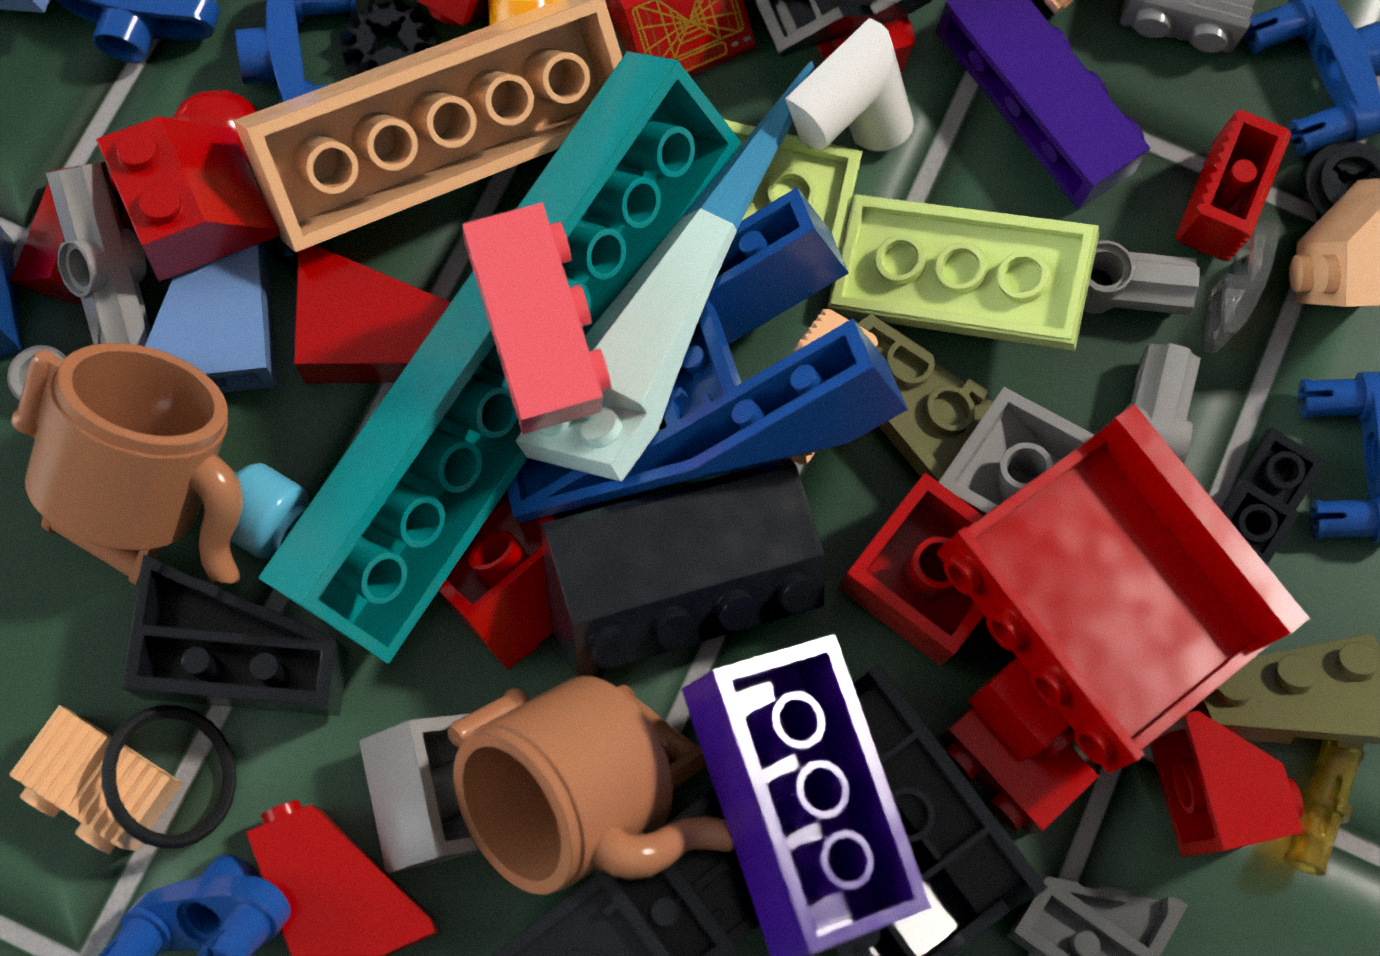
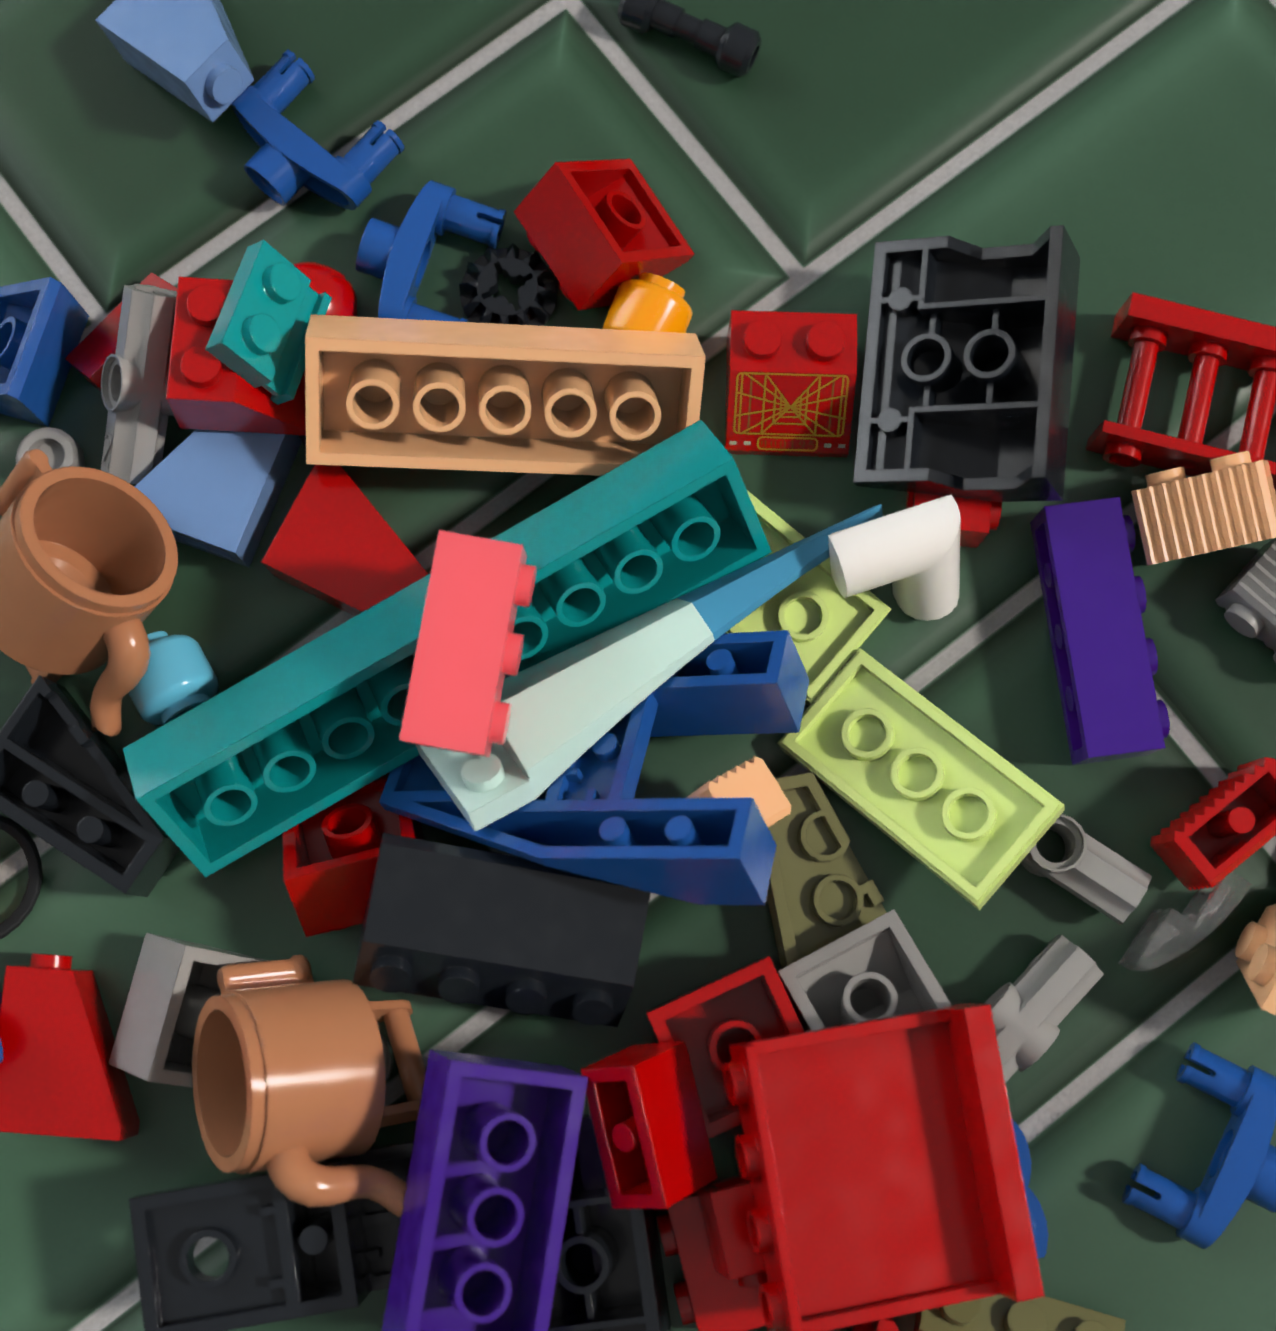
camera: 35 degrees right, 5 degrees up
(198, 143) = (266, 322): none -> teal plate
(905, 657) = (649, 1125): none -> red brick
(1270, 491) = (1097, 1136): black slope -> none

